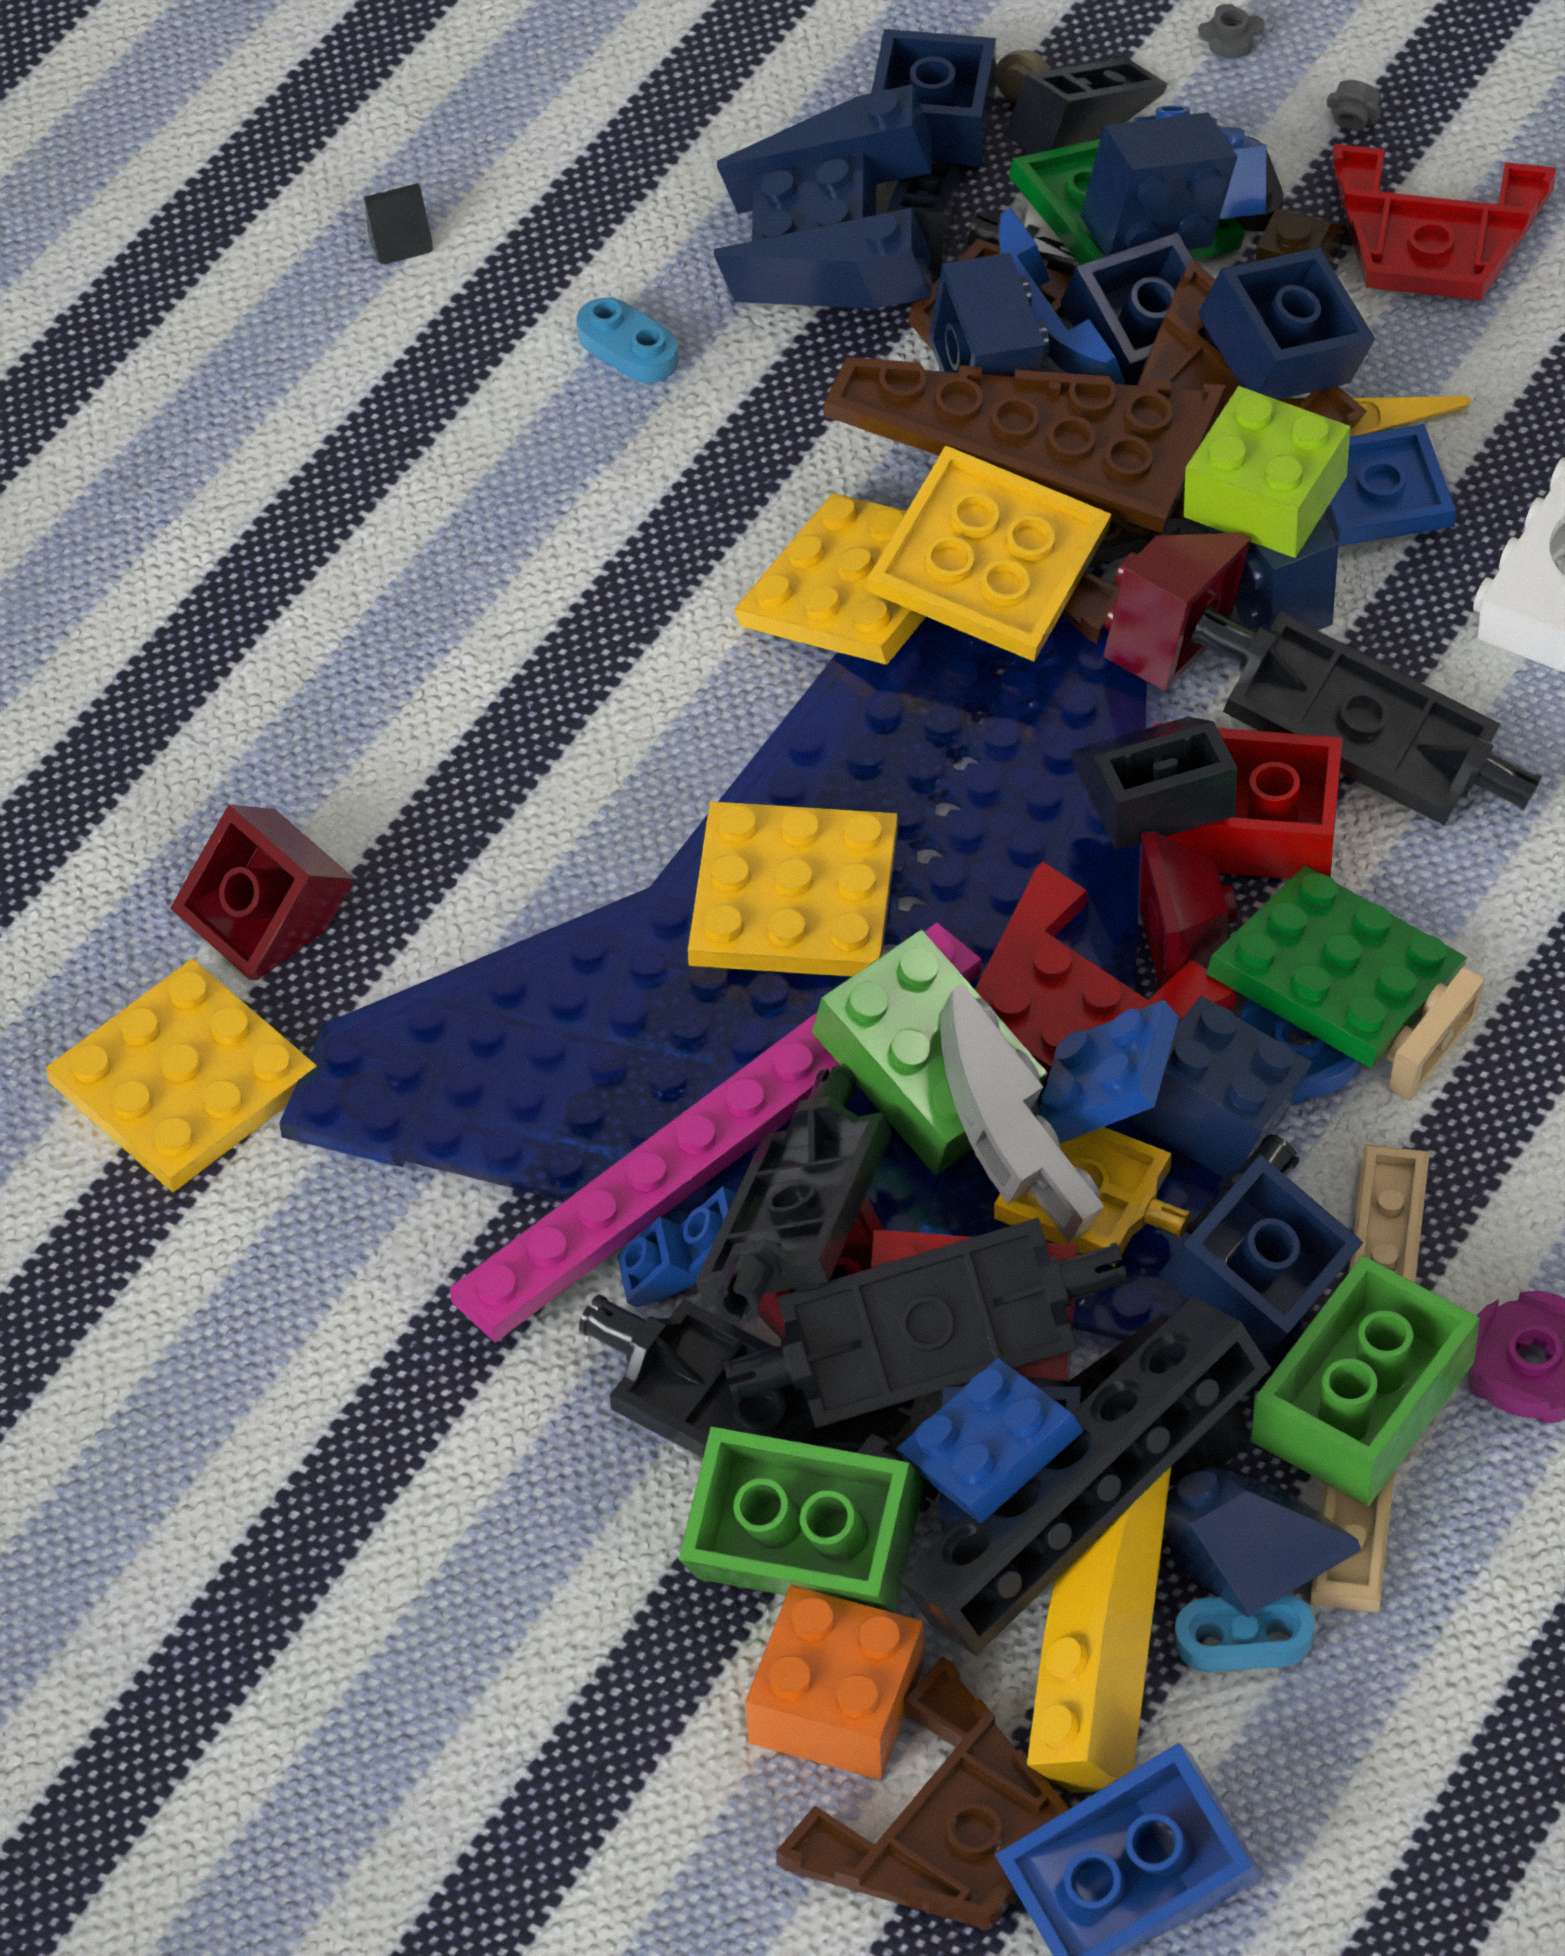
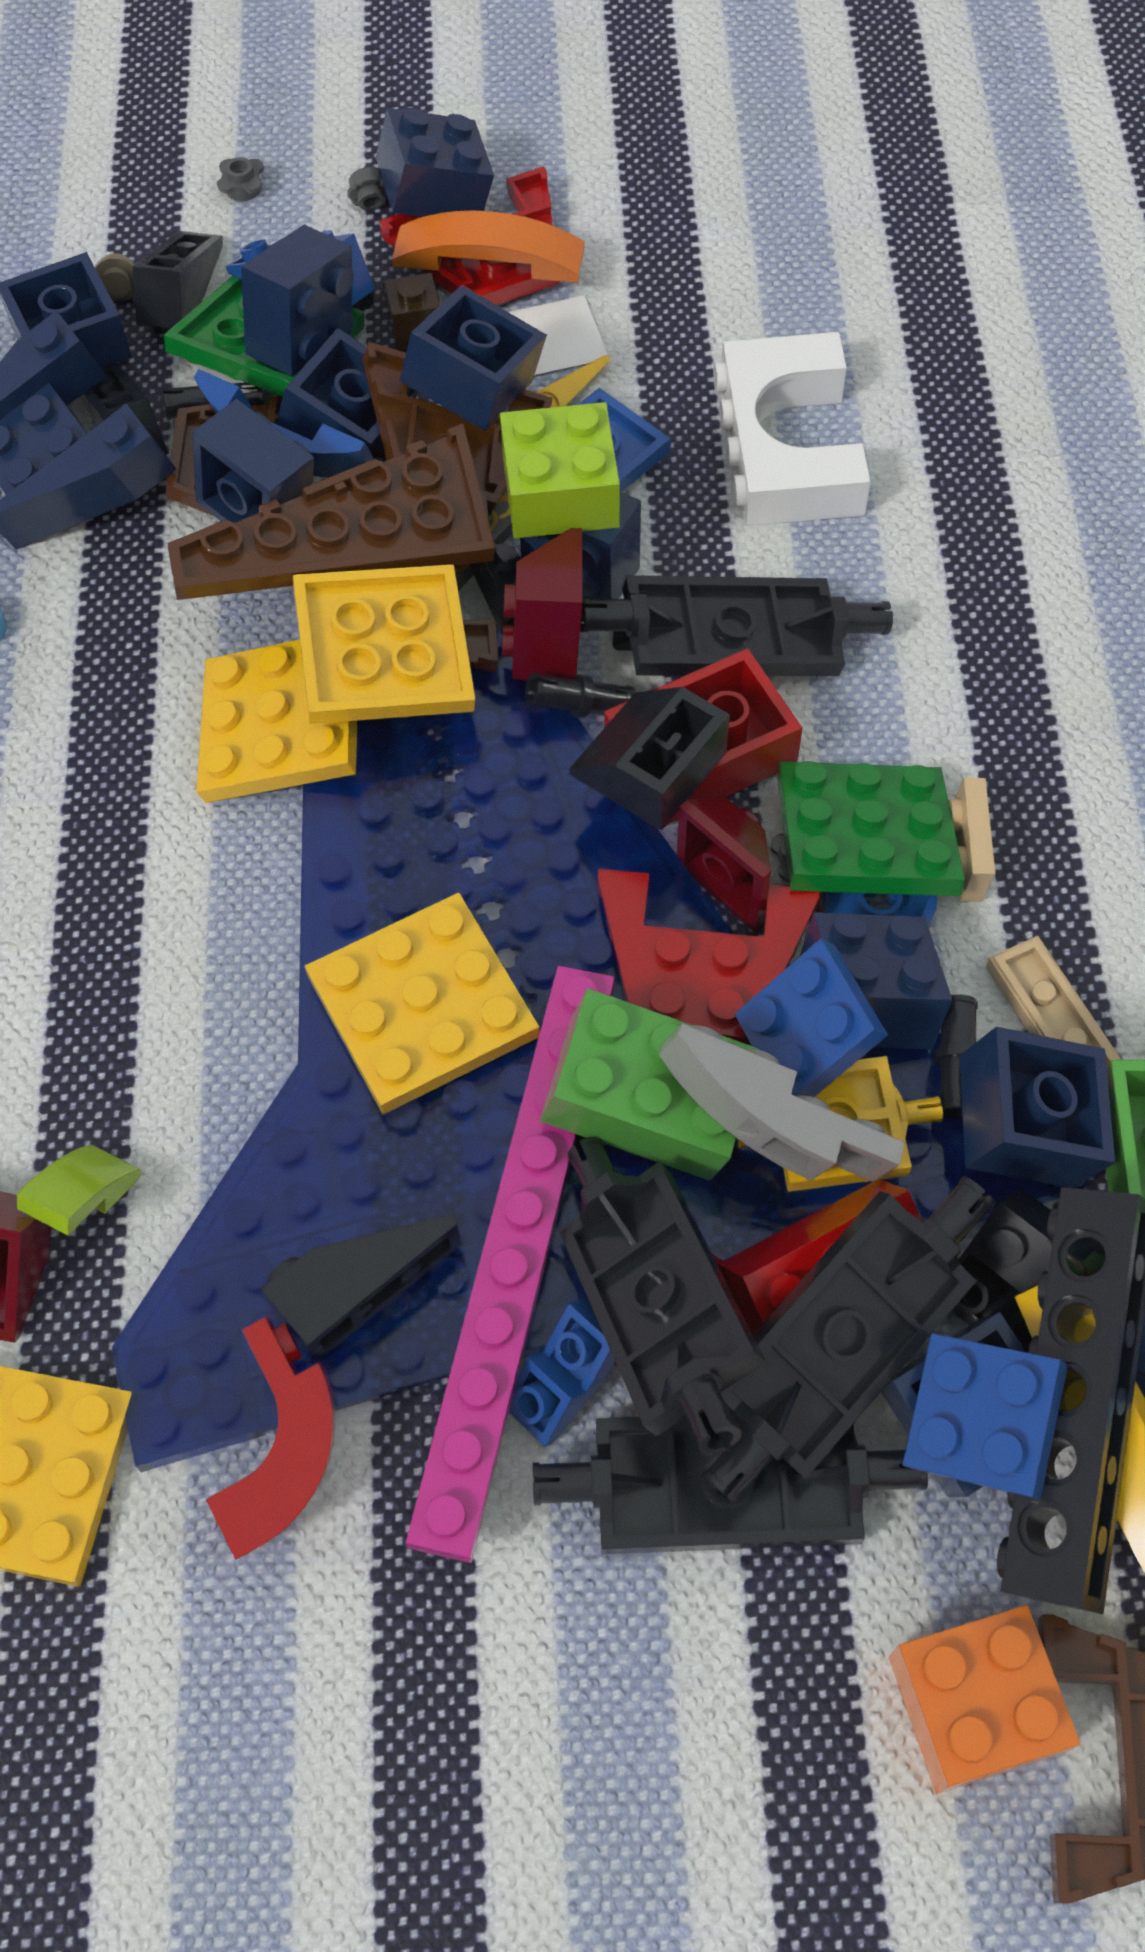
camera: 35 degrees left, 10 degrees up
(384, 873) = (75, 1187): none -> lime slope
(418, 1177) = (281, 1487): none -> red arch
(556, 1071) = (350, 1281): none -> black slope
(802, 1518) = (865, 1577): bright green brick -> none
(1145, 695) = (576, 695): none -> black pin
(1427, 349) = (570, 333): none -> white sticker
(1428, 217) = (490, 237): none -> orange slope
(1429, 113) = (433, 163): none -> dark blue brick

